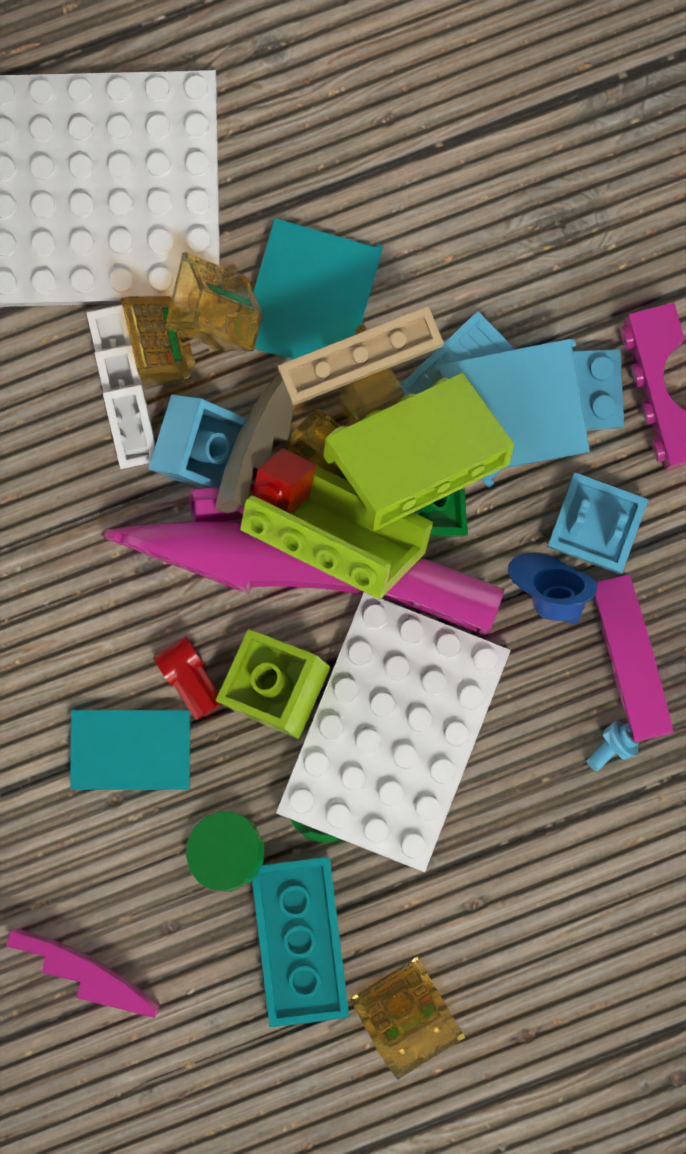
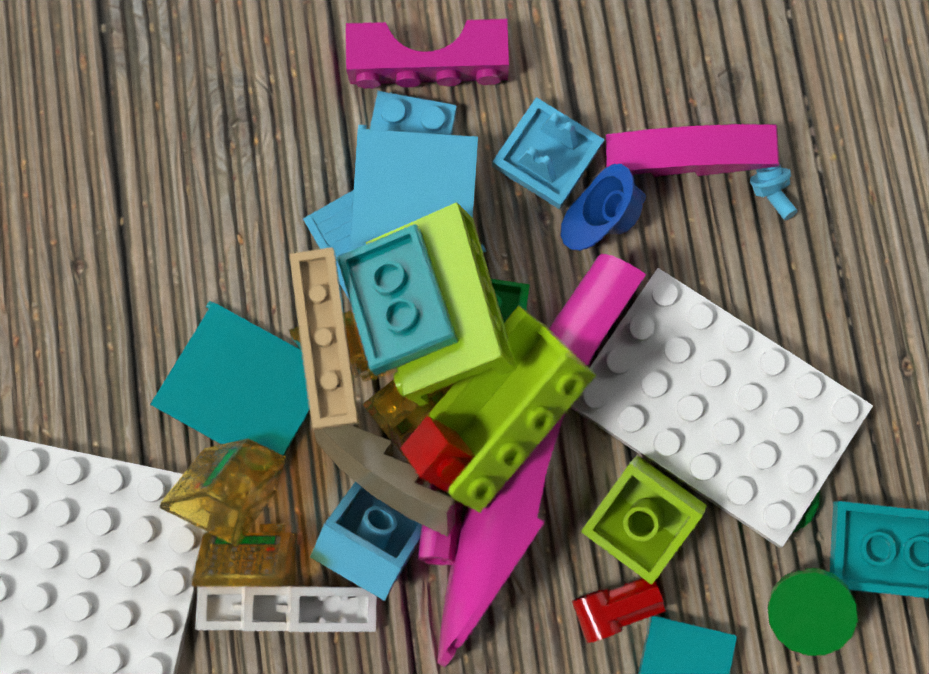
camera: 75 degrees left, 5 degrees down
(411, 410) = (396, 300): none -> teal tile

